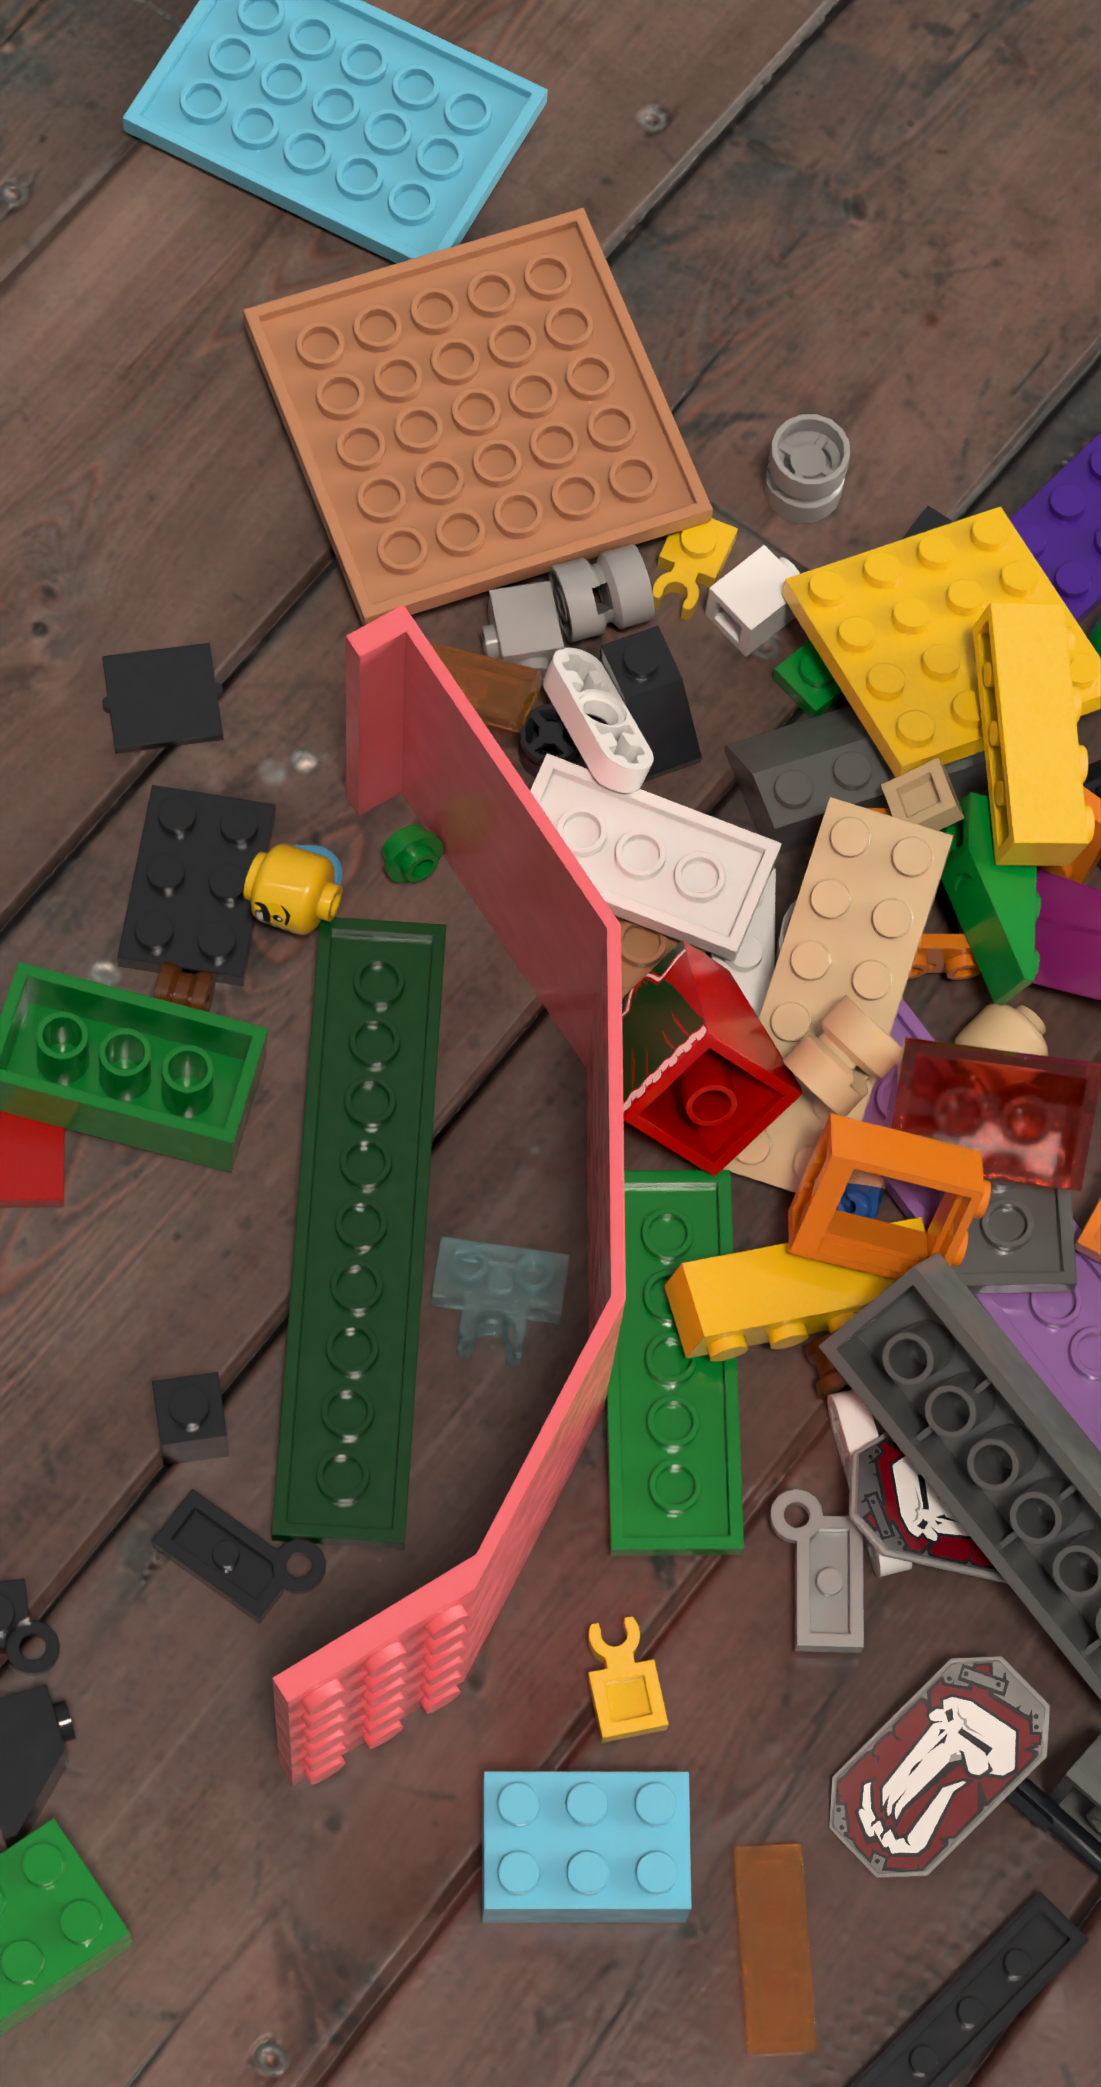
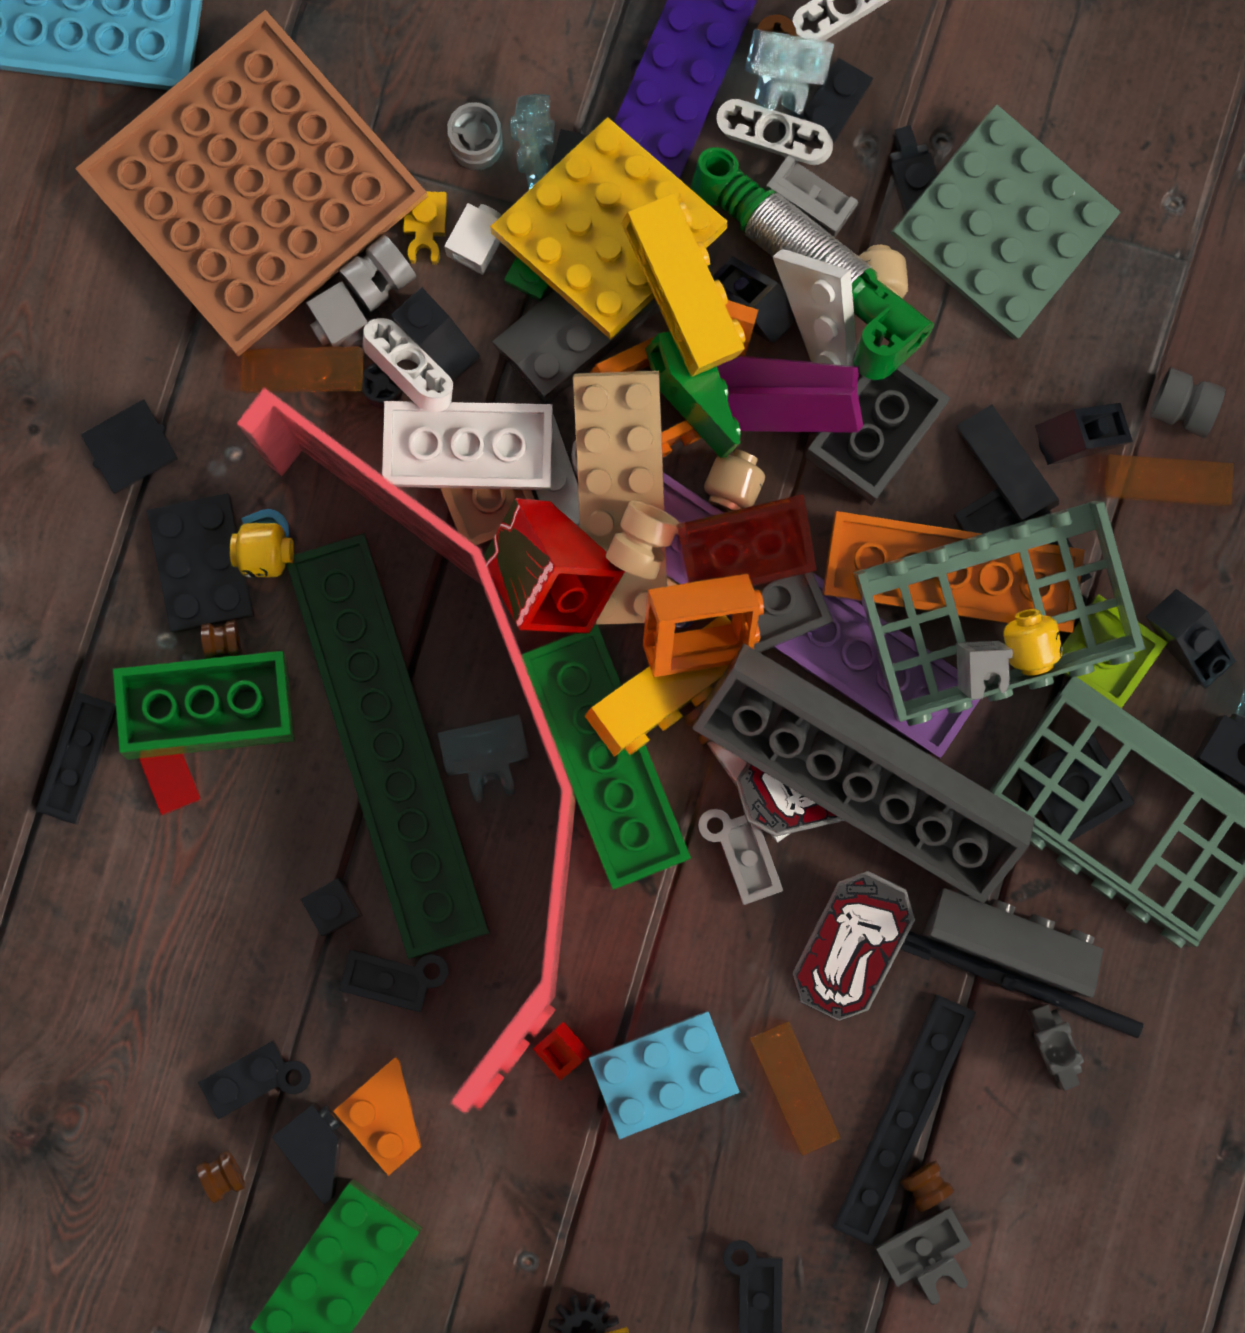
camera: 15 degrees left, 15 degrees up
(141, 1756) = (383, 1117): none -> orange wing
(412, 854) = (325, 493): green plate -> none
(445, 1756) = (562, 1051): none -> red plate
(624, 1693) = (654, 971): yellow plate -> none
(892, 491) = (533, 130): none -> clear light blue plate
(924, 796) = (630, 347): tan plate -> none

